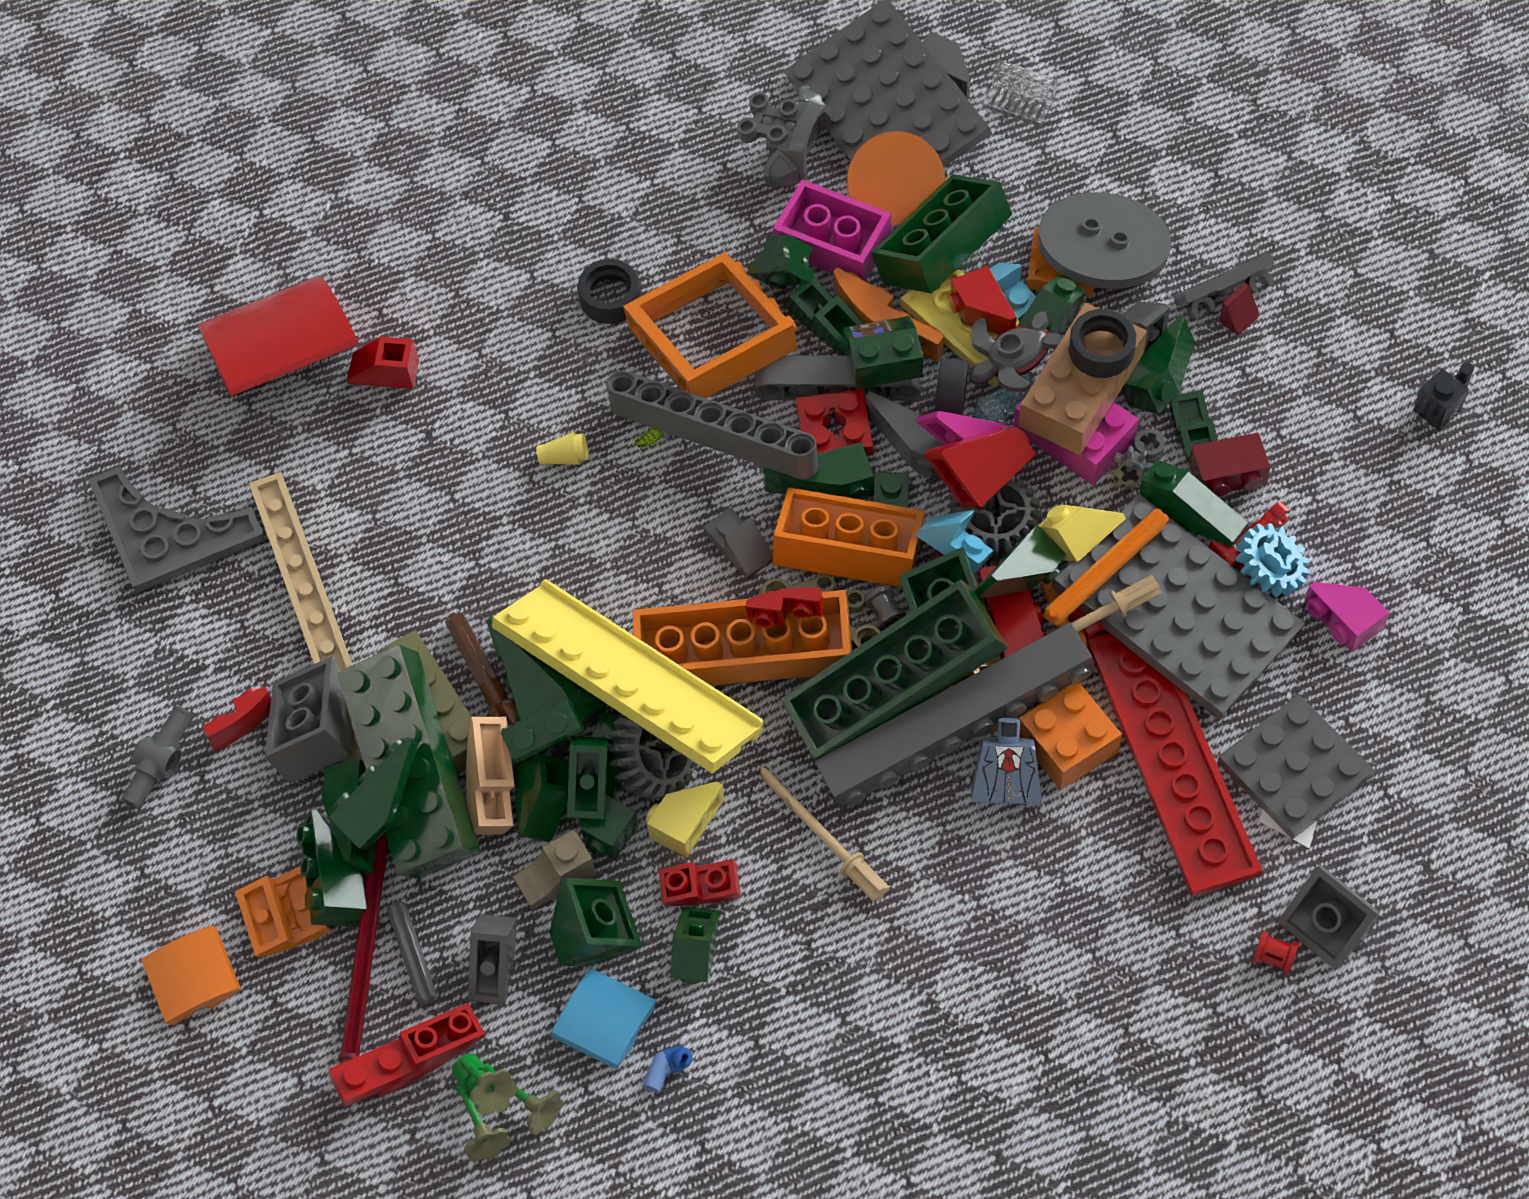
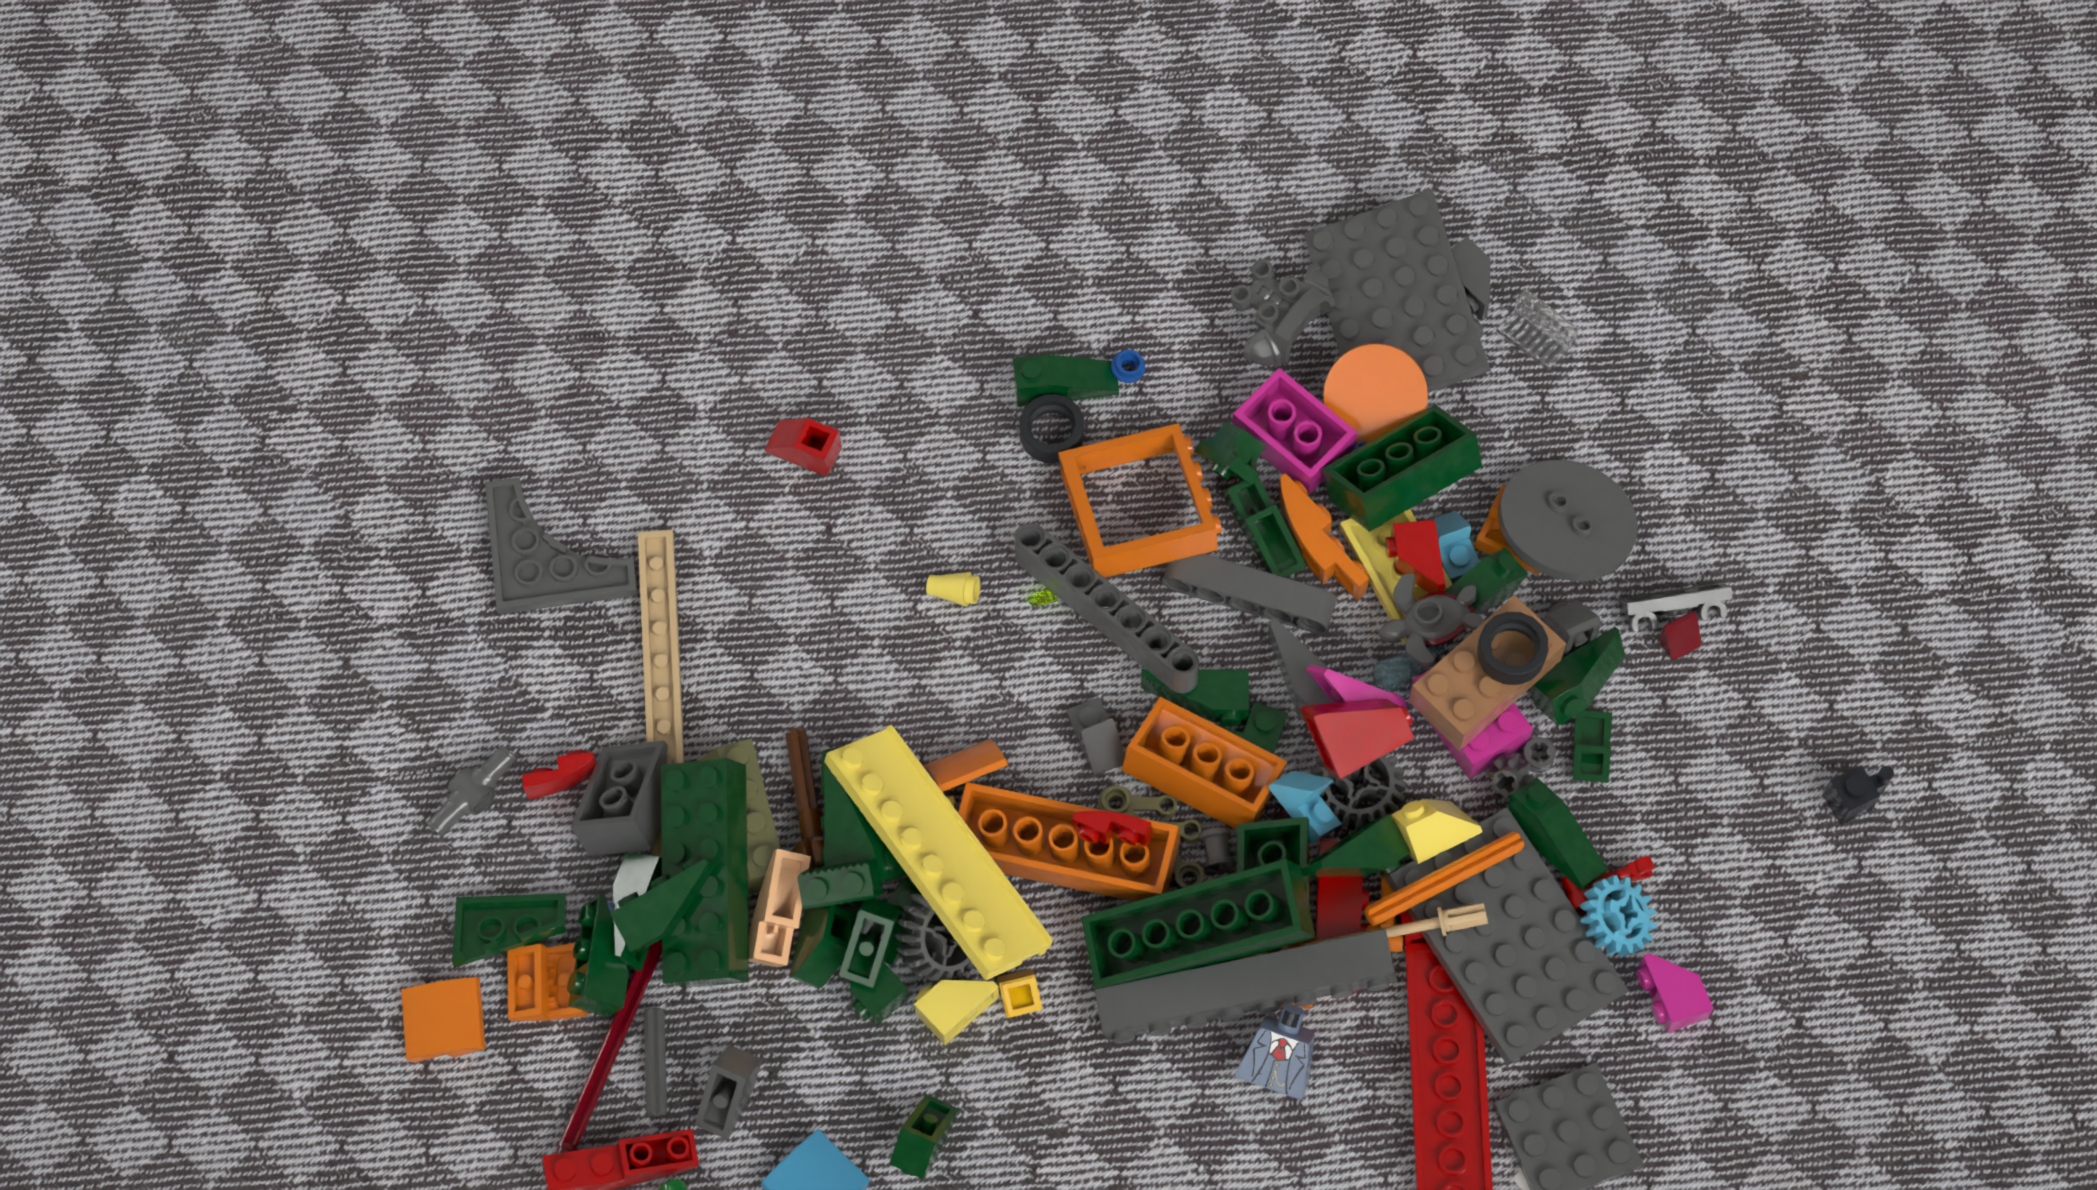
camera: 15 degrees right, 5 degrees up
(225, 867) = (503, 923): none -> dark green wing
(277, 335) = (707, 386): red slope -> none
(558, 860) = (813, 1022): dark tan arch -> none
(592, 922) = (833, 1085): dark green slope -> none
(604, 241) = (1063, 376): none -> dark green slope
(630, 595) = (966, 764): none -> orange slope
(658, 214) = (1131, 358): none -> blue plate
(699, 885) = (947, 1076): red slope -> none
(743, 789) = (1019, 993): none -> yellow slope
(849, 412) = (1249, 629): red brick -> none
(854, 865) = (1101, 1104): tan piece -> none
(884, 352) = (1300, 579): dark green slope -> none
(951, 386) = (1355, 641): black tyre -> none
(1070, 735) = (1353, 1037): orange brick -> none
(1230, 464) = (1611, 801): dark red brick -> none

